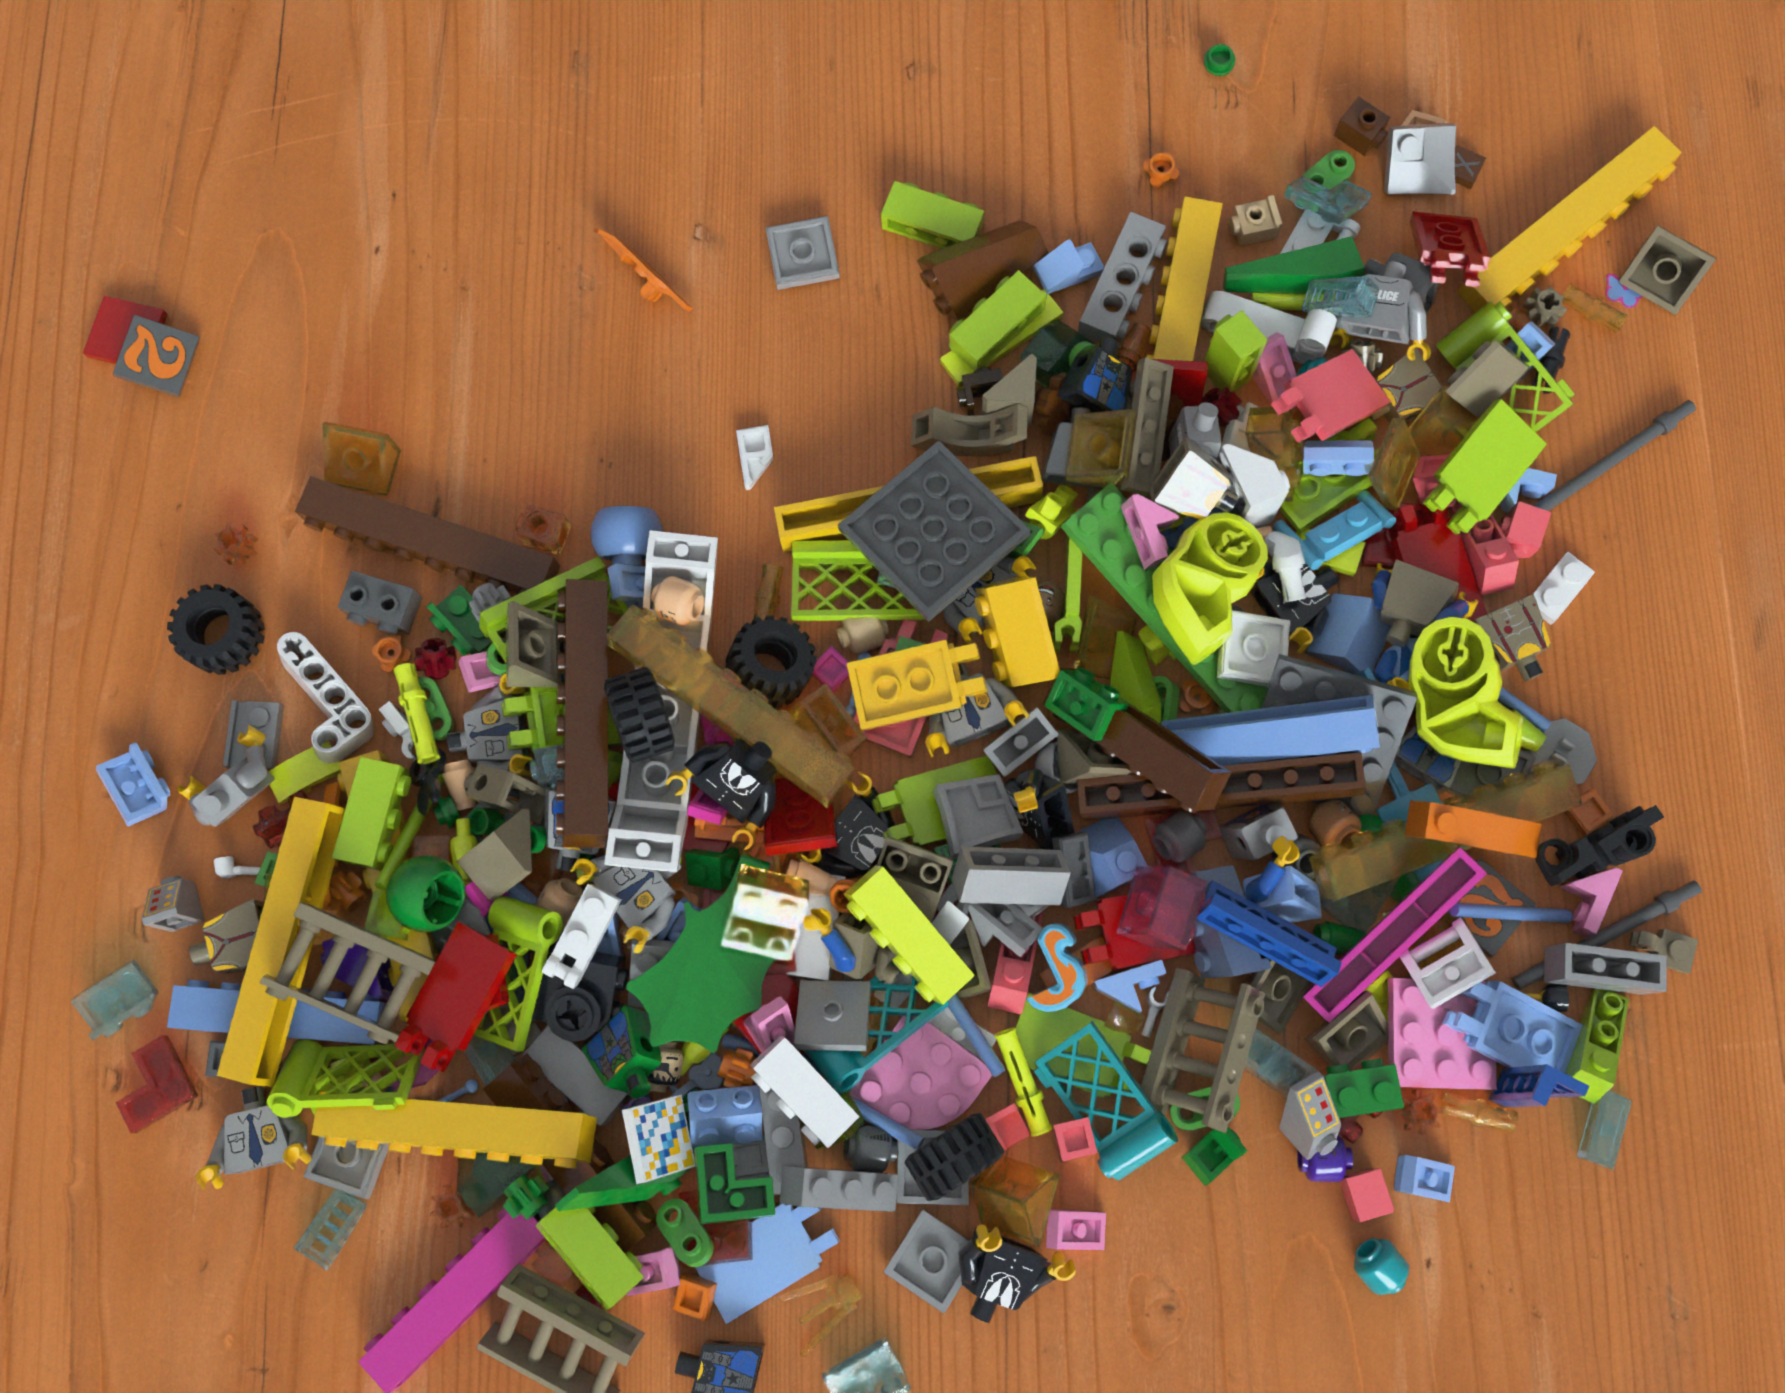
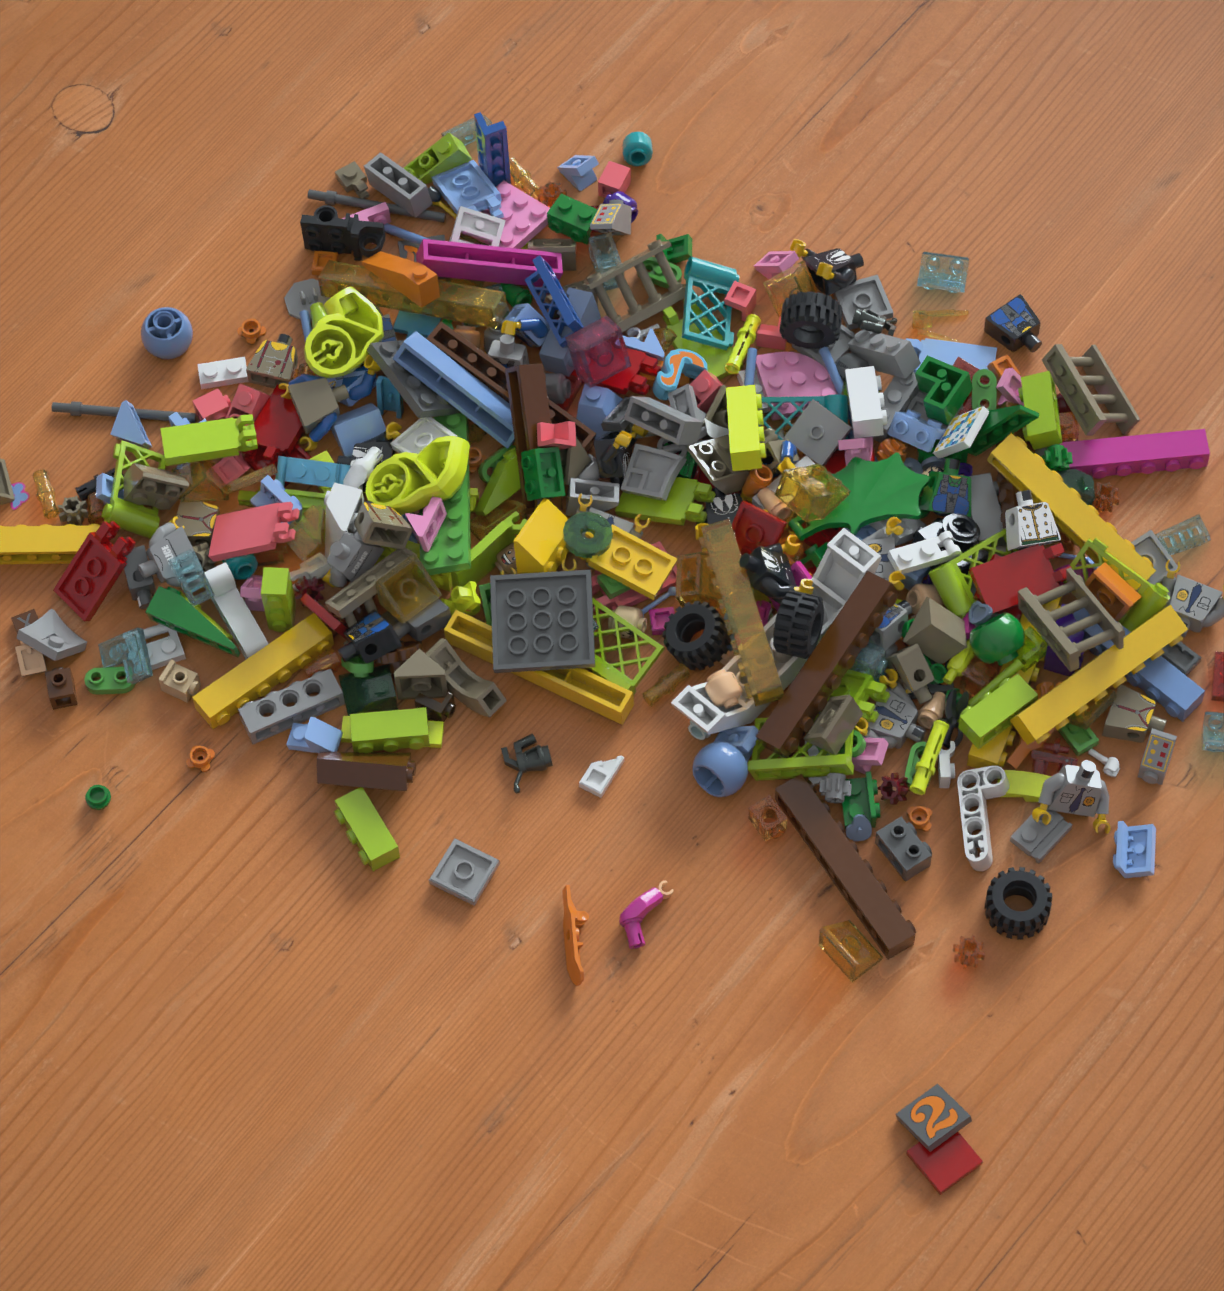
camera: 145 degrees left, 15 degrees down
(337, 1062) = (1112, 591): none -> orange slope
(443, 591) = (859, 829): none -> sand blue piece
(469, 911) = (979, 613): none -> sand blue piece
(484, 1065) = (1030, 523): none -> white torso
(596, 342) = (637, 910): none -> dark pink arm
(834, 412) = (534, 759): none -> pearl dark grey piece
(894, 1229) = (873, 322): none -> pearl dark grey piece
(962, 642) = (591, 523): none -> clear green tile
(1107, 749) = (556, 435): none -> coral panel
(1584, 438) = (129, 427): none -> light blue slope
(1588, 654) = (249, 325): none -> orange plate
(1648, 579) = (161, 335): none -> medium blue wheel

